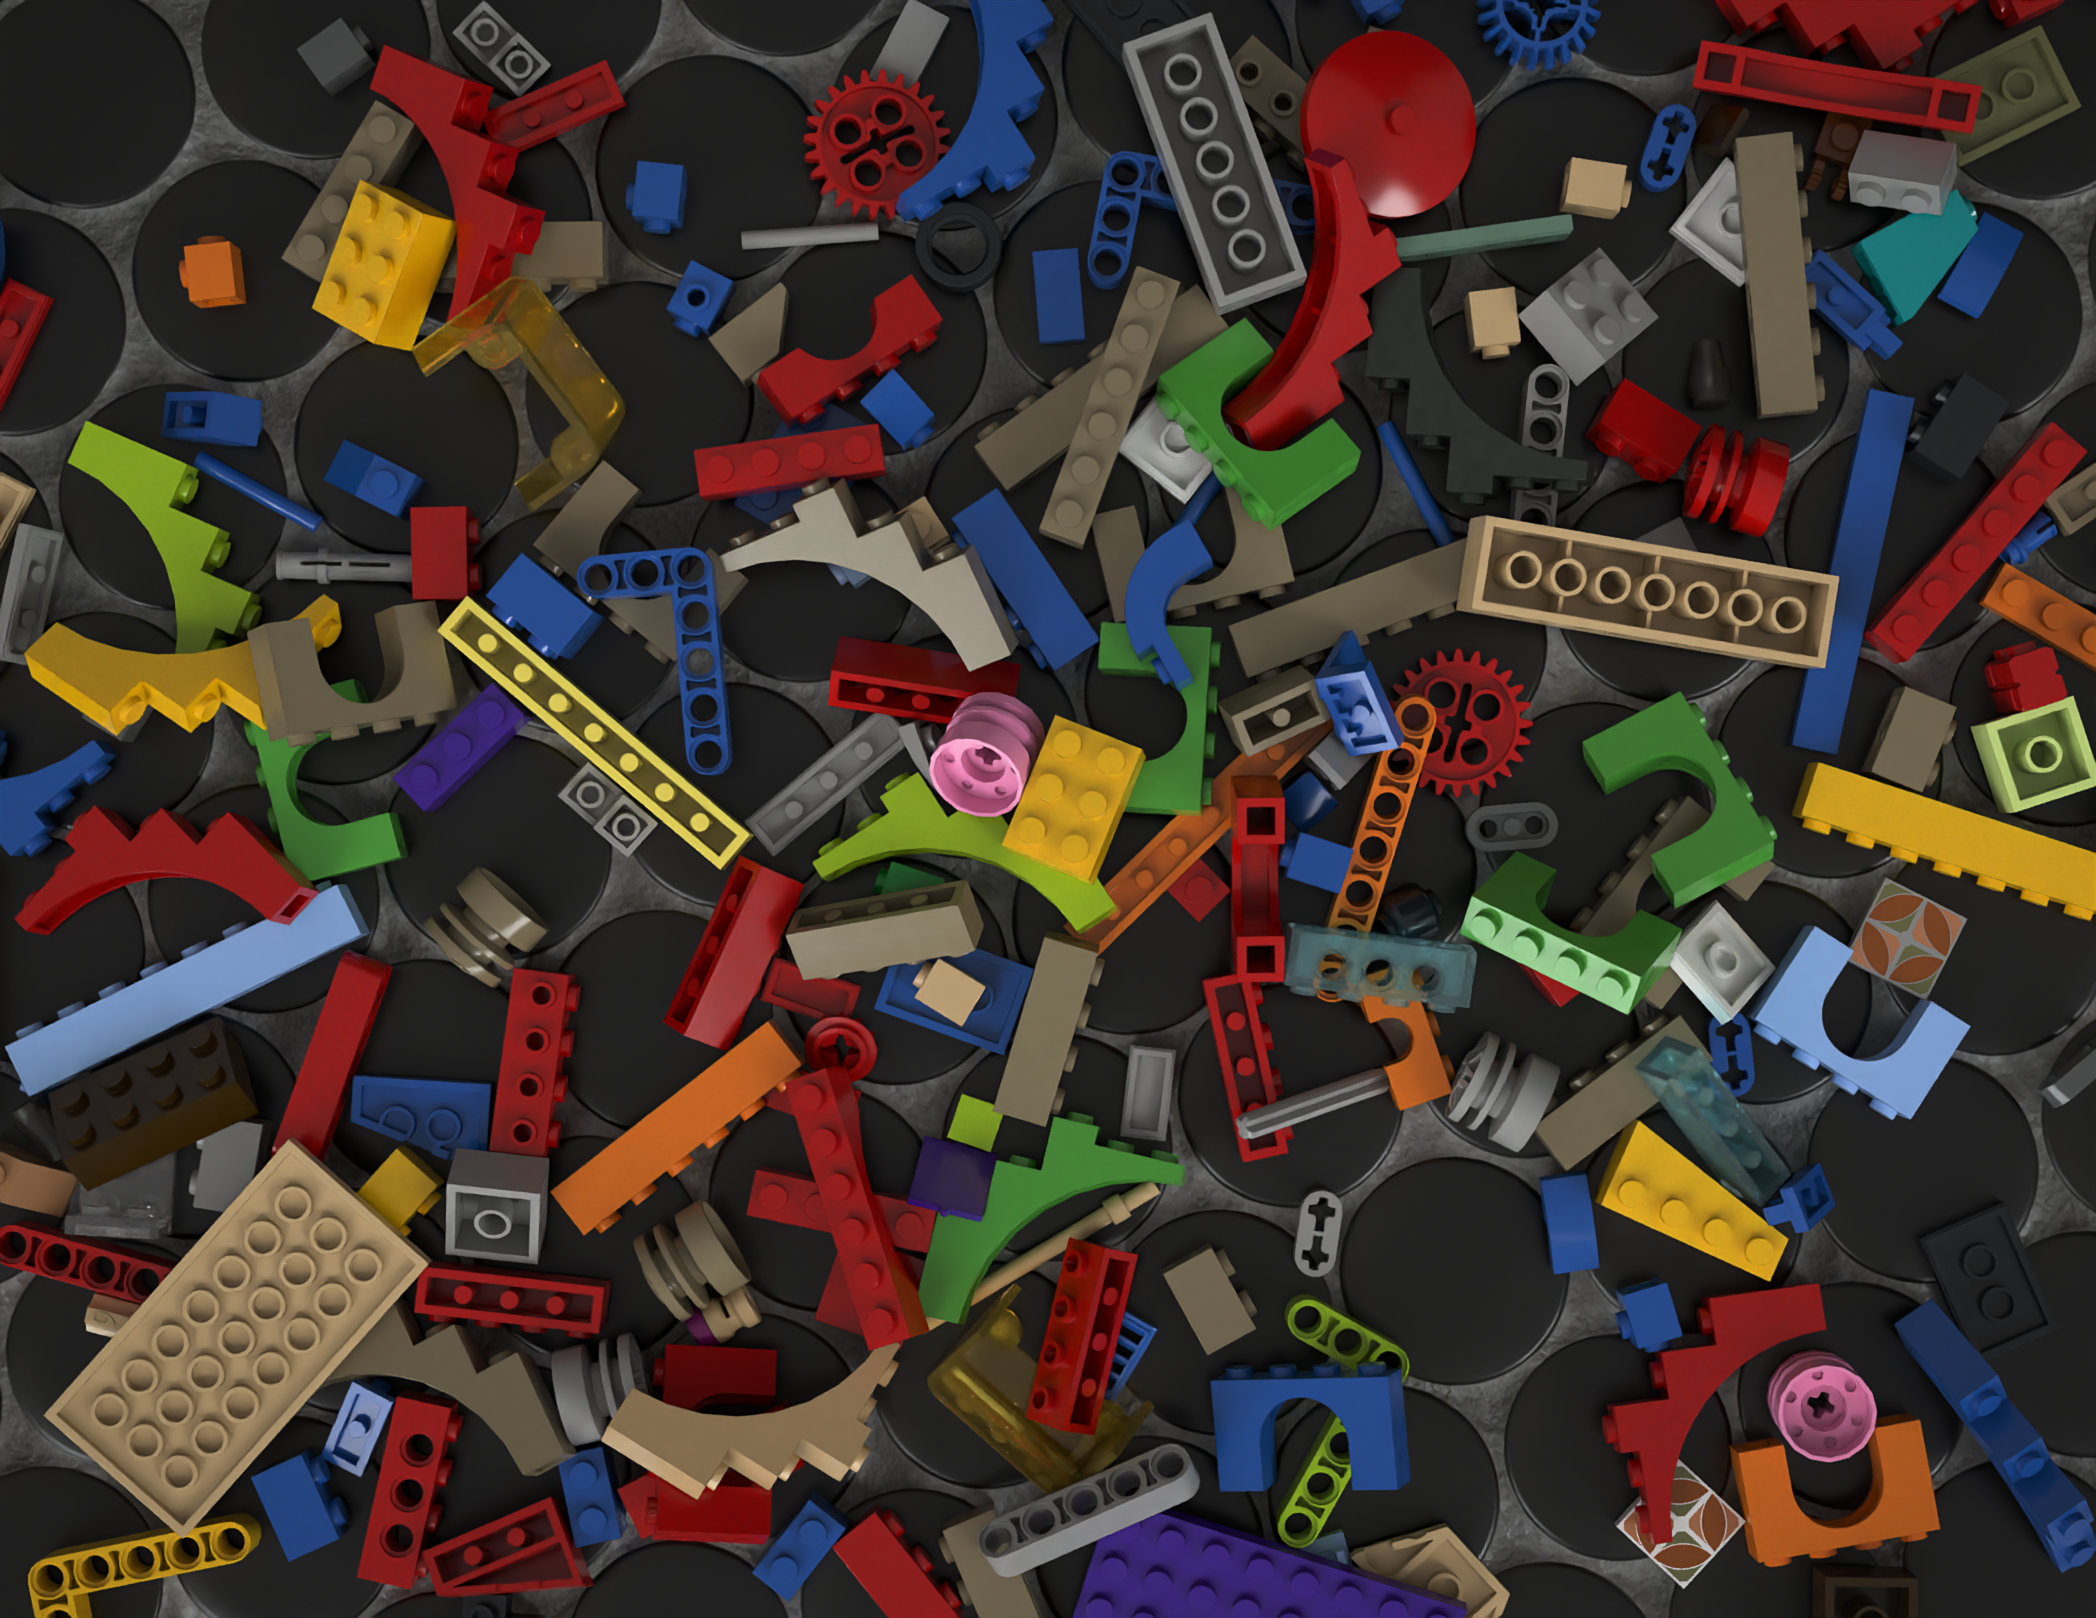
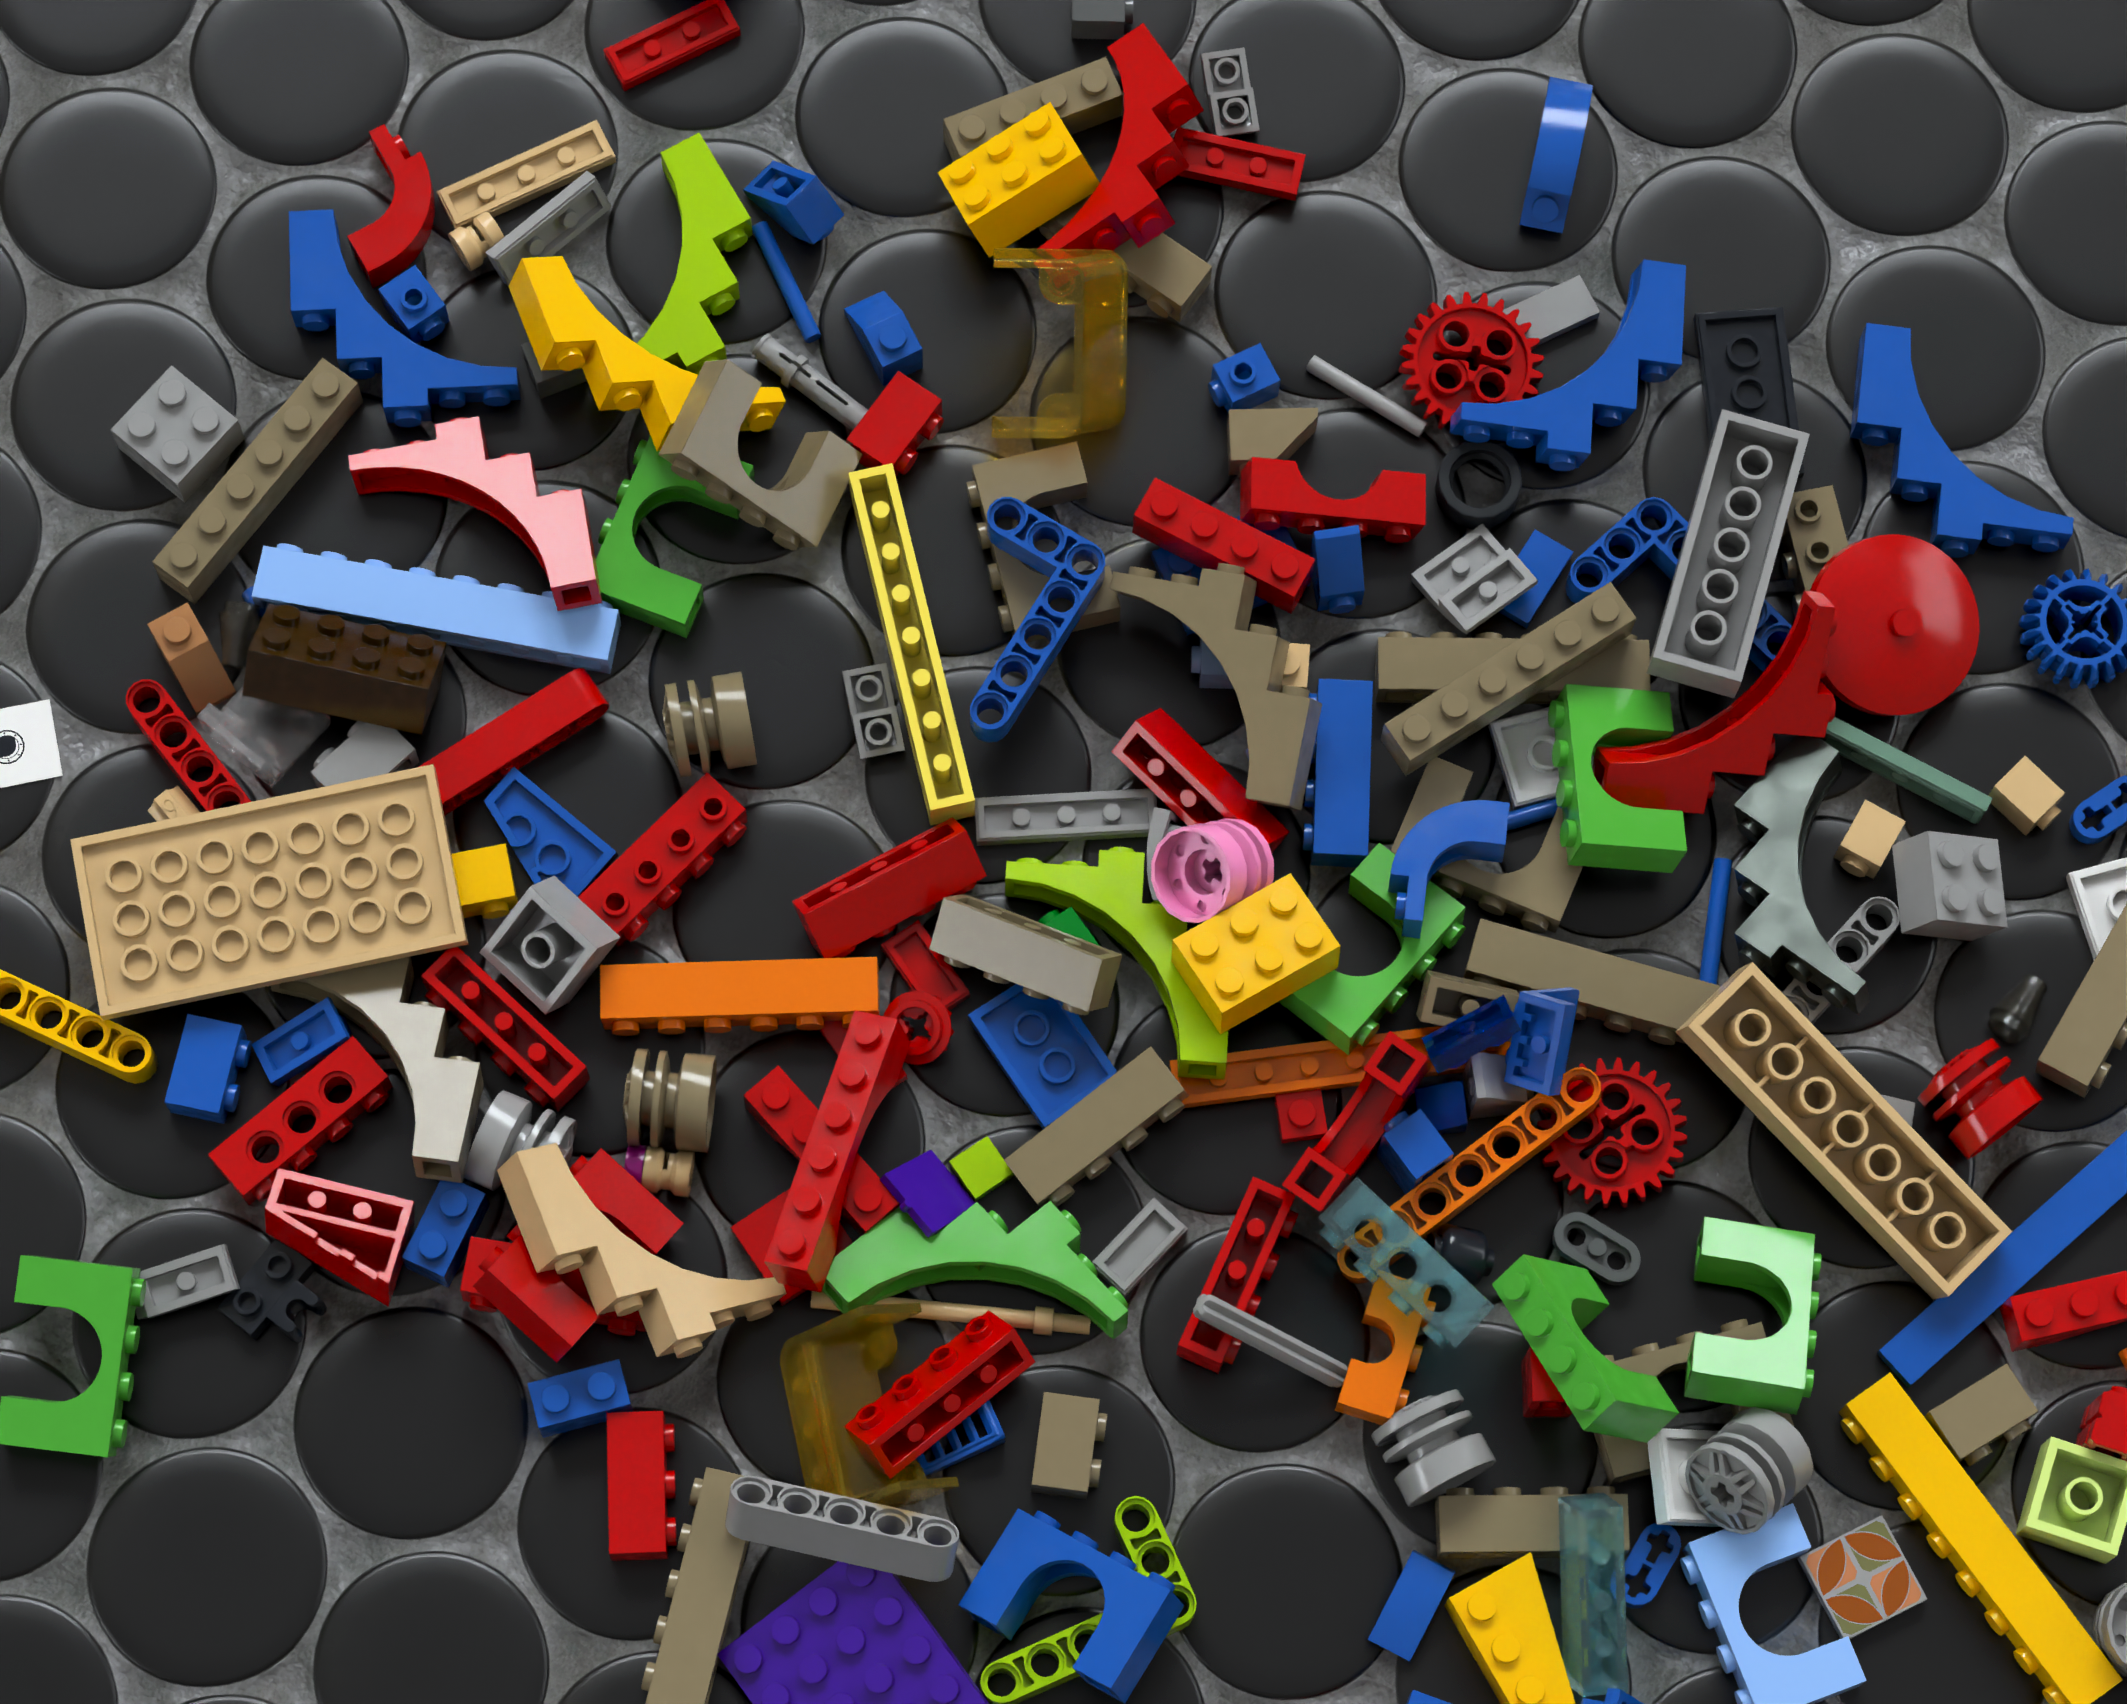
camera: 30 degrees right, 15 degrees down
(213, 273) = (879, 98): orange brick -> none
(462, 747) = (797, 580): dark purple brick -> none
(545, 607) = (946, 519): blue brick -> none
(658, 196) = (1269, 282): blue brick -> none
(948, 990) = (1041, 1038): tan brick -> none
(1015, 334) = (1473, 579): none -> light grey slope
(1299, 742) = (1471, 1034): none -> clear blue plate
(1306, 1230) = (1187, 1453): light grey beam -> none
(1642, 432) = (1931, 1010): red brick -> none
(1767, 930) = (1749, 1470): none -> light grey wheel

